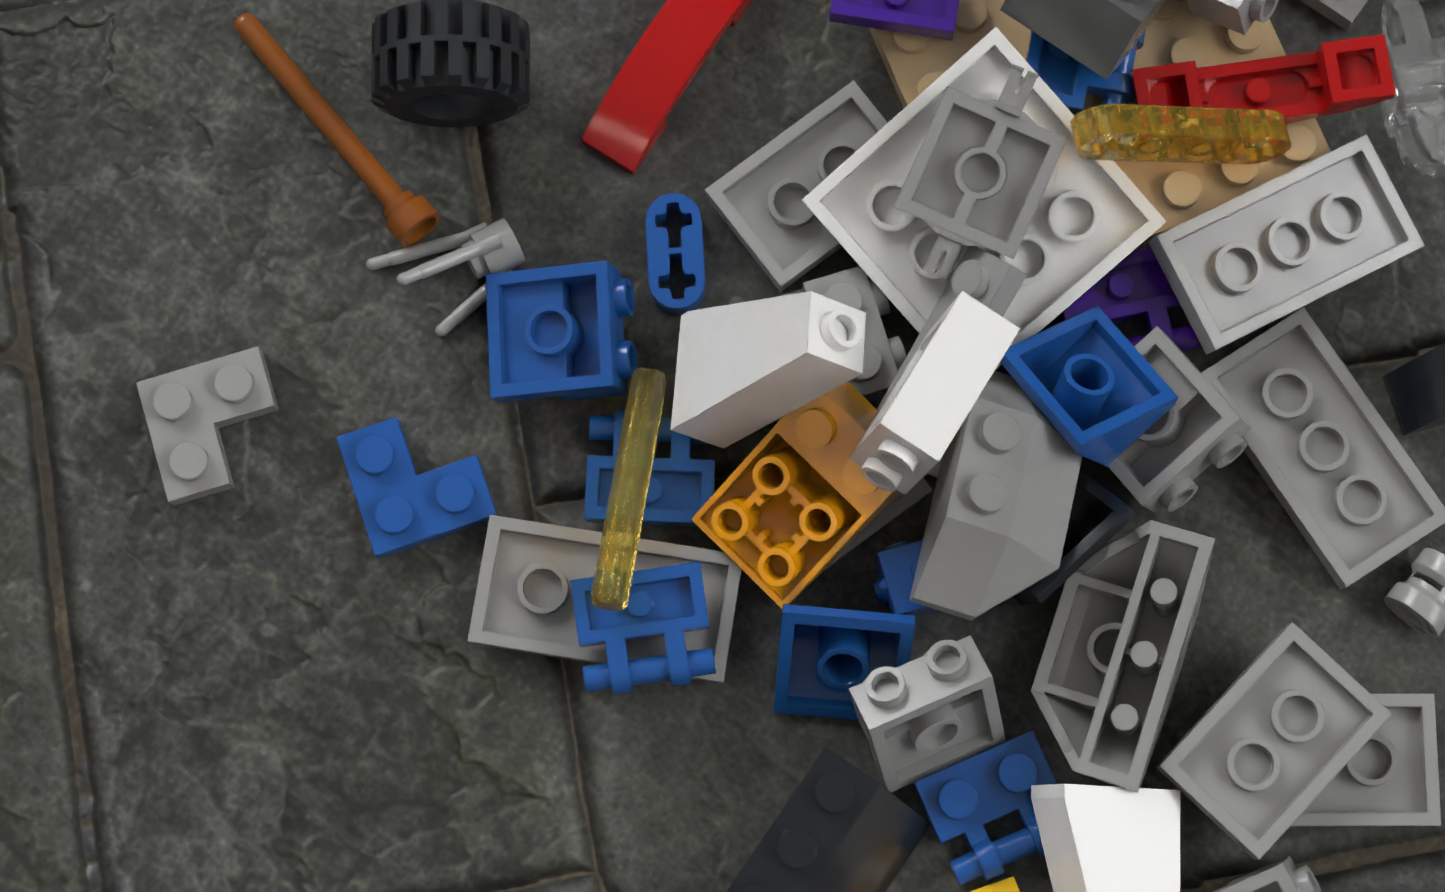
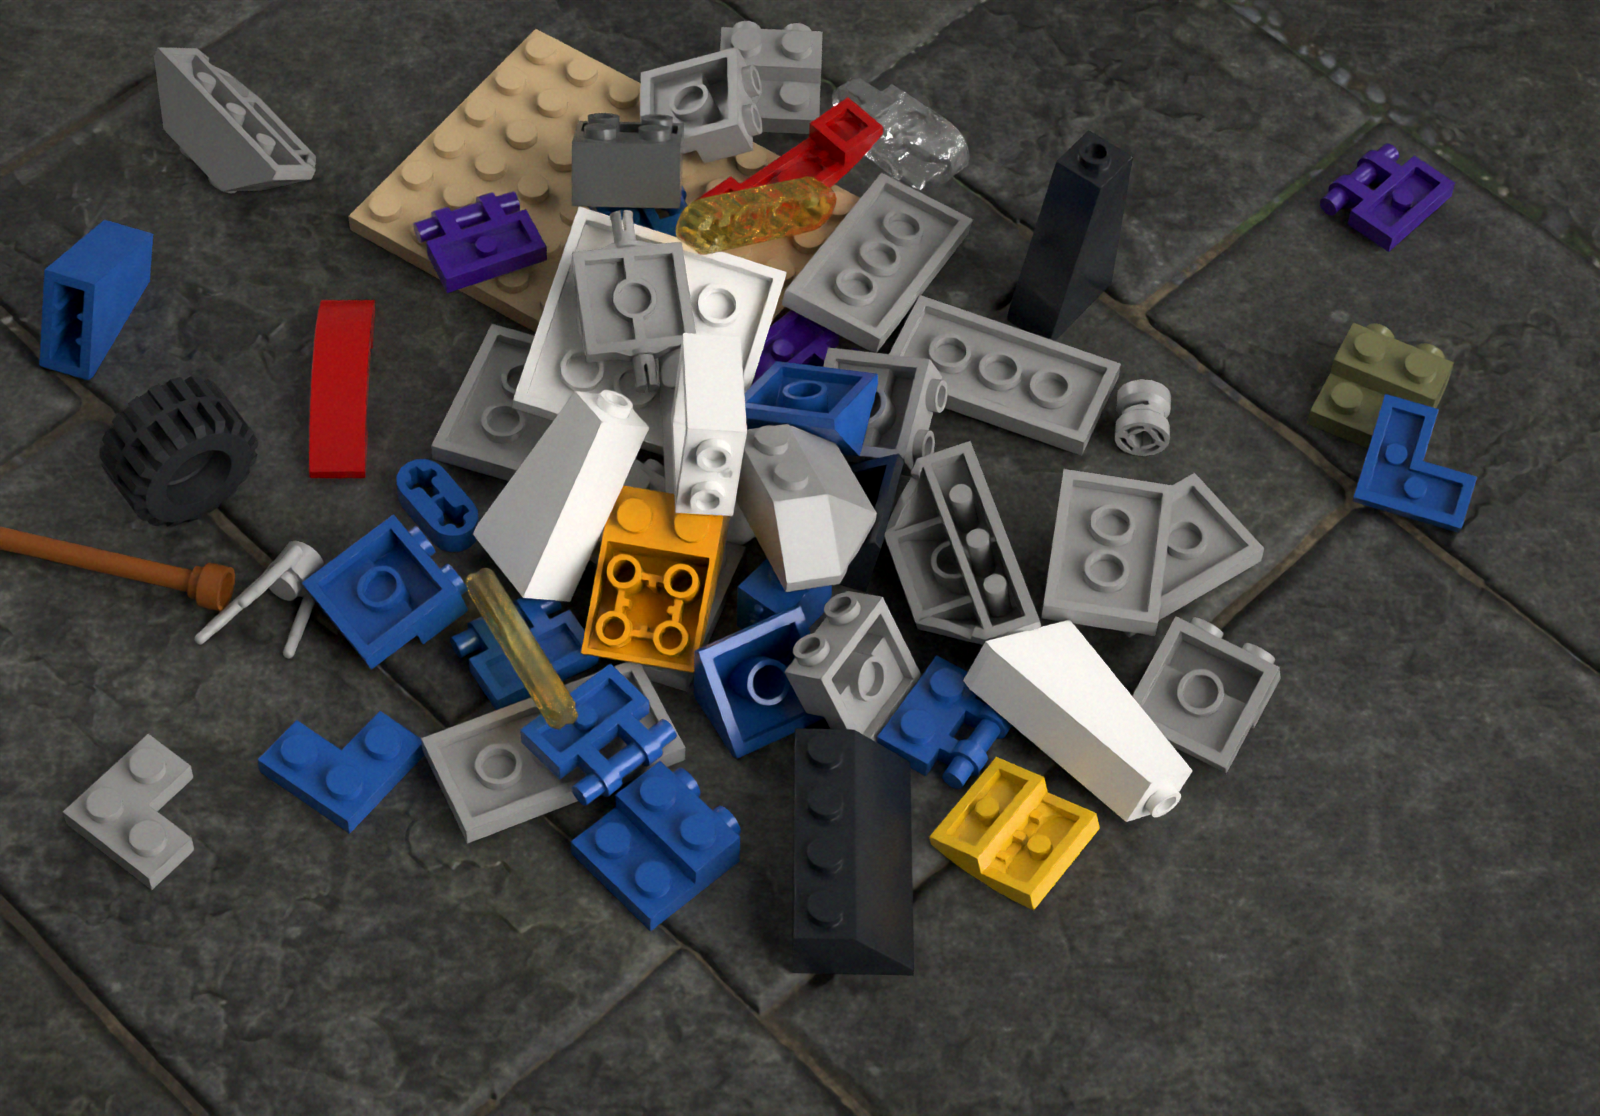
camera: 40 degrees left, 25 degrees down
(636, 762) = (659, 844): none -> blue plate

